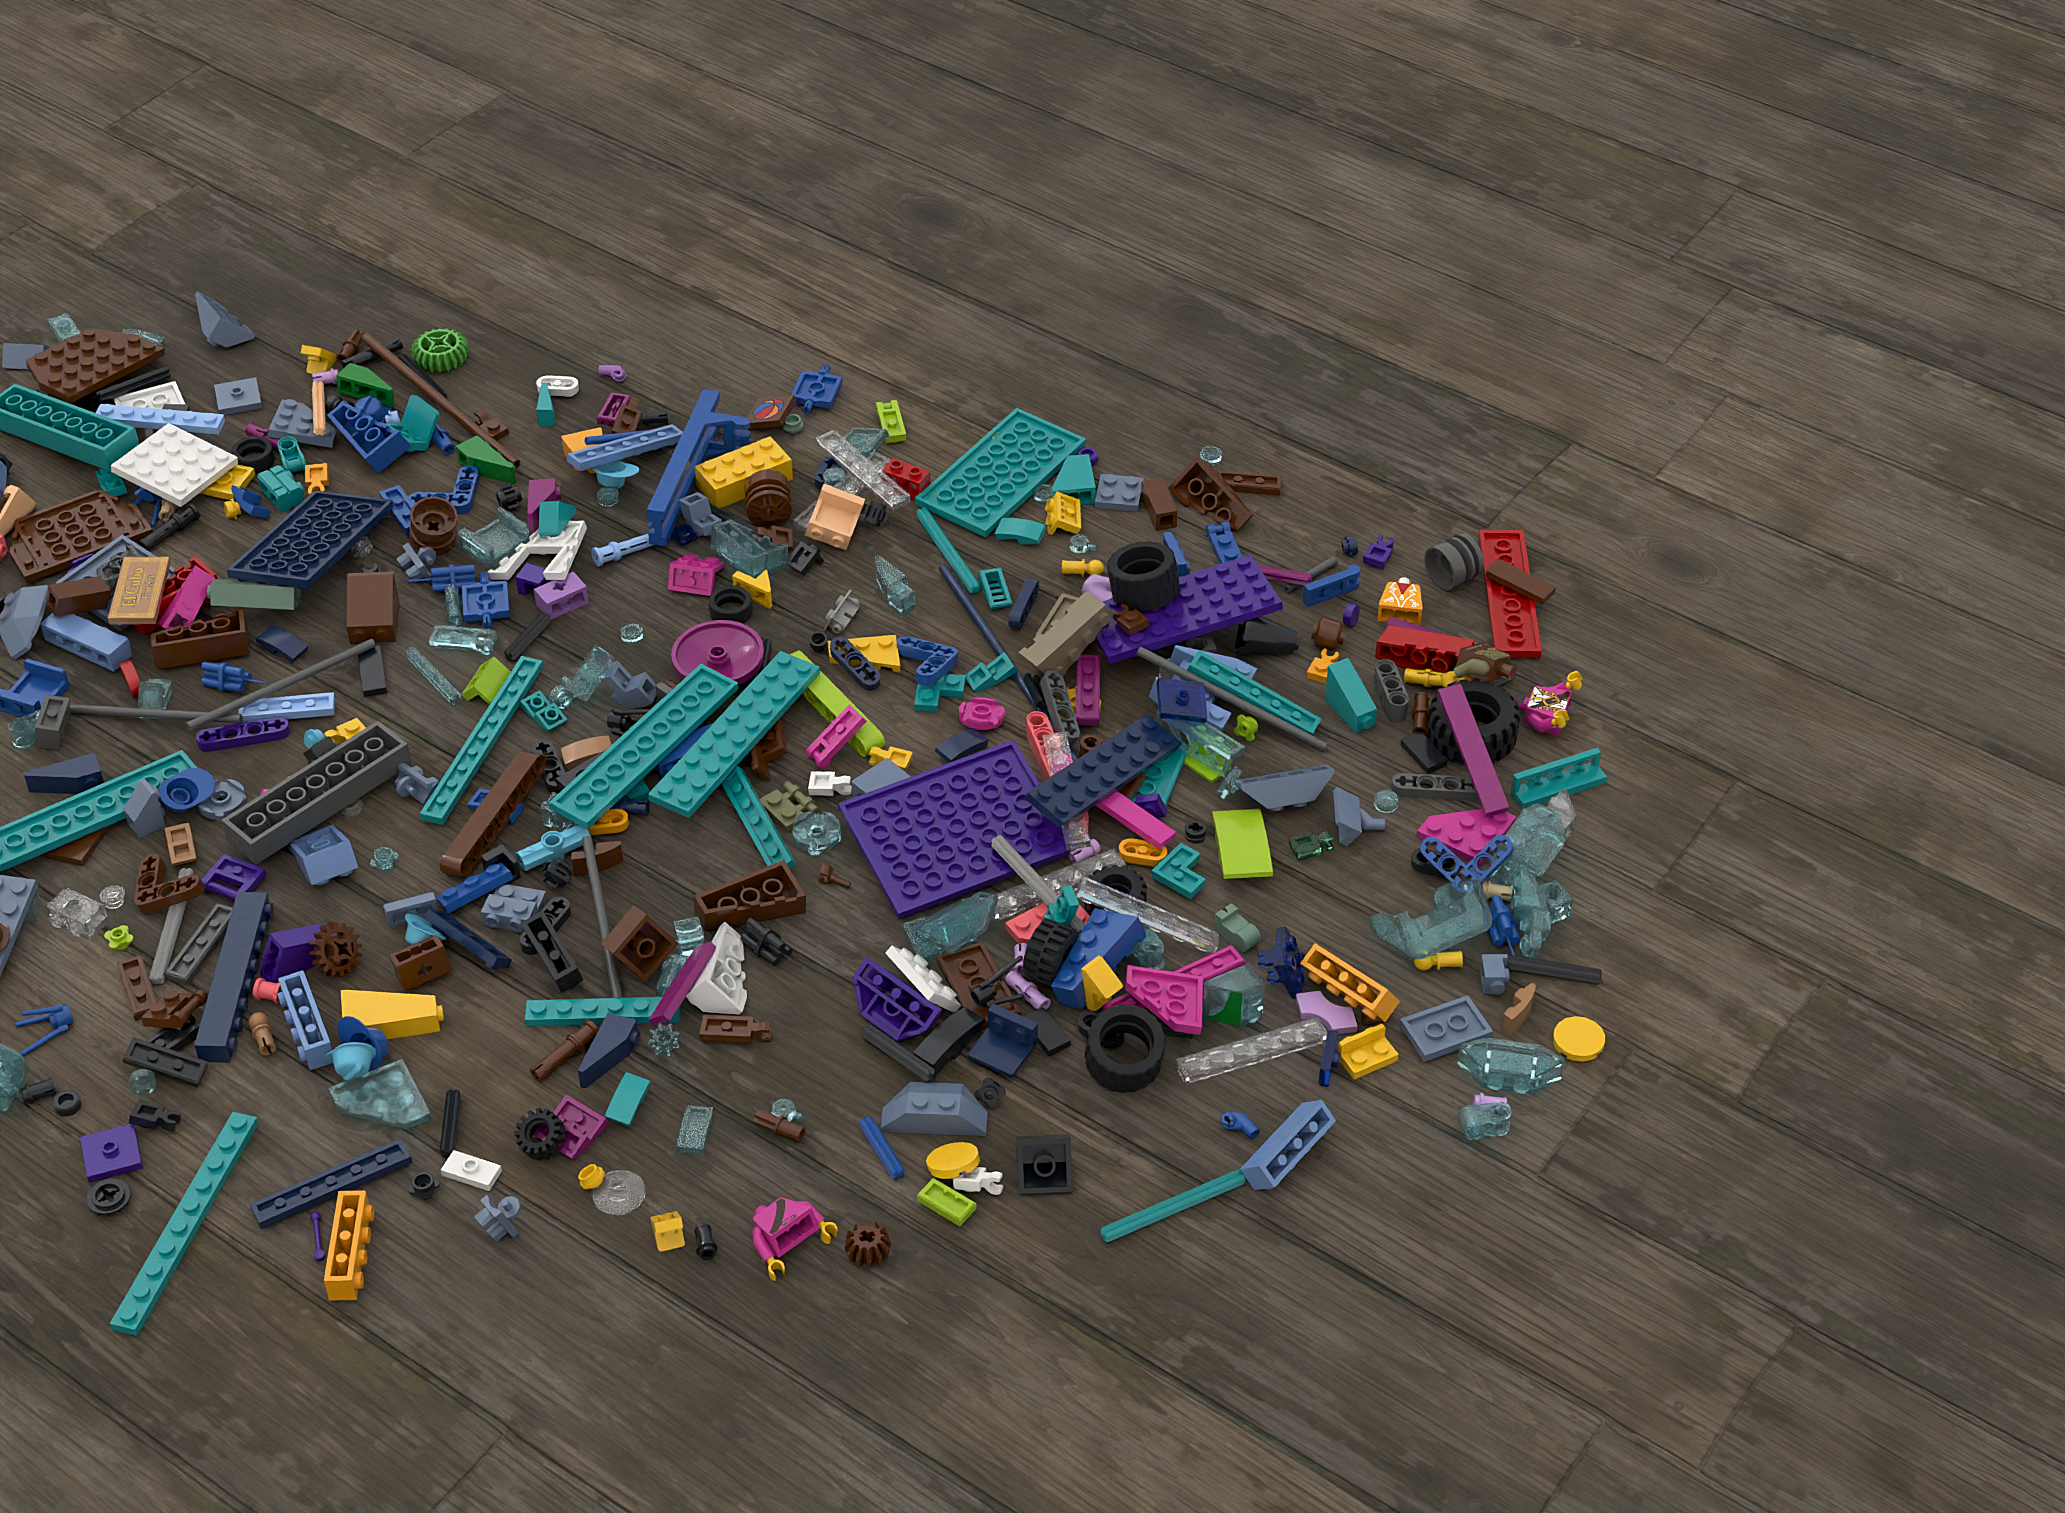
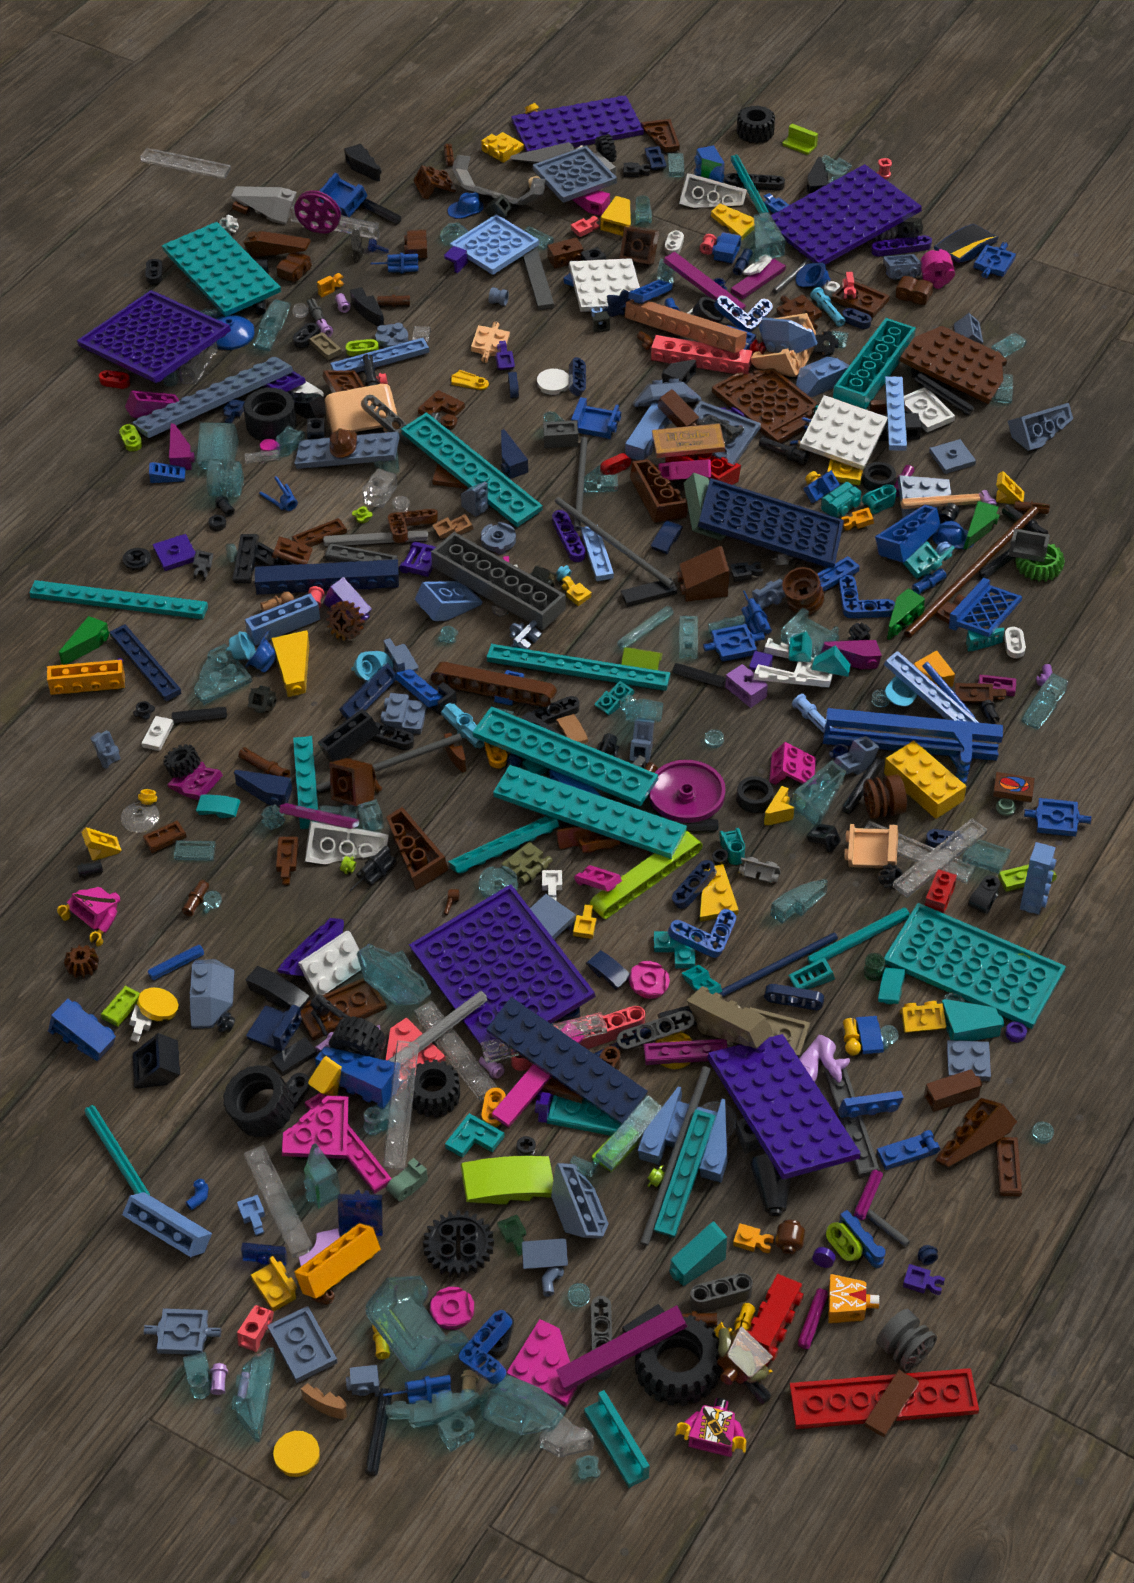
camera: 85 degrees right, 5 degrees up
(46, 480) = (820, 375): none -> medium blue wedge
(186, 789) = (493, 511): blue piece -> none
(226, 677) = (624, 514): blue piece -> none
(256, 1248) = (86, 639): none -> green slope
(420, 962) = (338, 668): reddish brown brick -> none
(431, 341) = (1029, 545): none -> dark grey panel
(451, 1045) = (262, 699): none -> pearl dark grey brick
(497, 405) = (972, 603): none -> blue fence
(519, 542) = (800, 648): none -> teal slope
(556, 873) = (435, 730): black gear -> none
(653, 374) = (1045, 701): none -> clear light blue slope
(667, 1158) = (164, 836): none -> reddish brown plate
(757, 970) = (348, 865): none -> lime plate
(778, 535) = (844, 813): reddish brown plate -> none
(802, 627) = (733, 844): none -> teal piece
(834, 476) = (929, 840): clear light blue tile -> none
(899, 1053) = (263, 959): black axle -> none
(913, 450) = (985, 894): none -> black piece
(921, 393) = (1037, 878): none -> medium blue brick
(983, 1238) = (81, 1029): none -> blue wedge
(993, 540) = (874, 966): none -> clear green wheel
(1064, 908) = (391, 1041): teal slope -> none
(1079, 551) = (869, 1034): none -> blue slope
(1130, 621) = (752, 1063): reddish brown plate -> none
(1143, 575) = (800, 1080): black tyre -> none
(1181, 700) = (654, 1109): clear blue plate -> none
(1269, 1071) = (252, 1210): none -> medium blue plate
(1322, 889) = (479, 1243): none -> black gear
(1332, 598) = (844, 1244): none -> lime plate
(1398, 898) = (452, 1308): none -> dark pink tile
(1425, 1067) = (254, 1328): none -> coral leg
(1428, 1136) = (182, 1331): none -> sand blue plate
(1587, 806) = (585, 1461): none -> clear light blue plate

